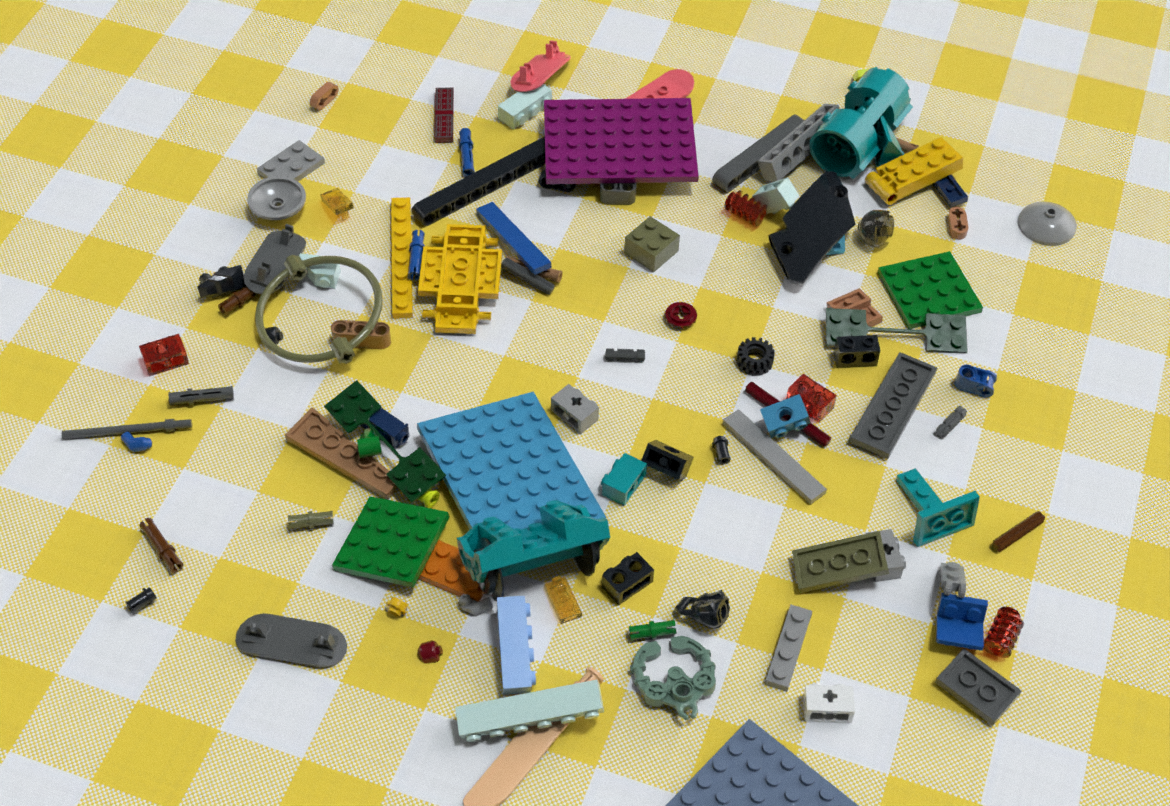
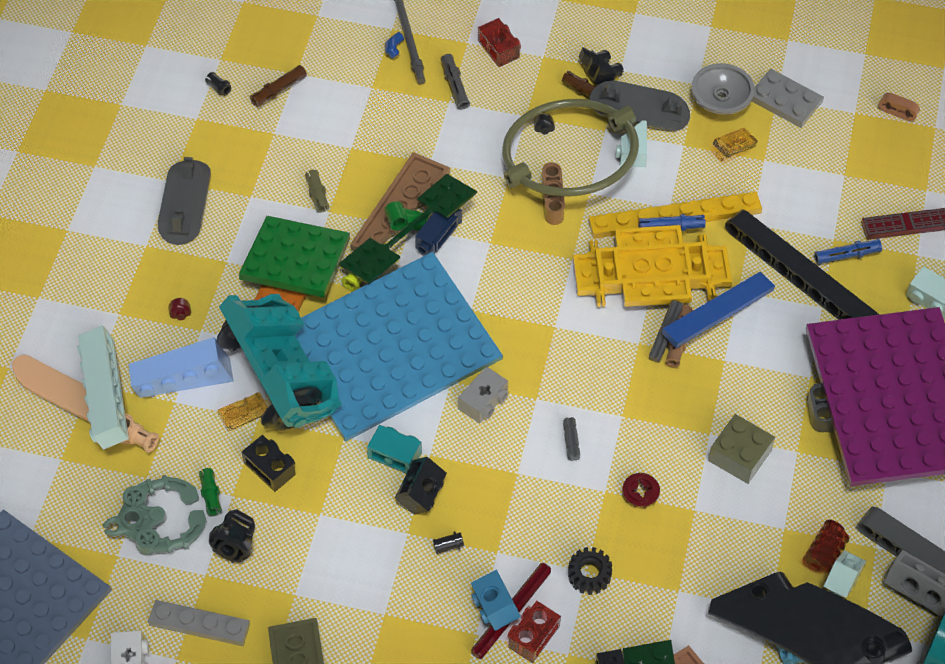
camera: 85 degrees right, 5 degrees up
(397, 606) = (224, 273): yellow plate -> none
(774, 456) = (446, 600): light grey tile -> none

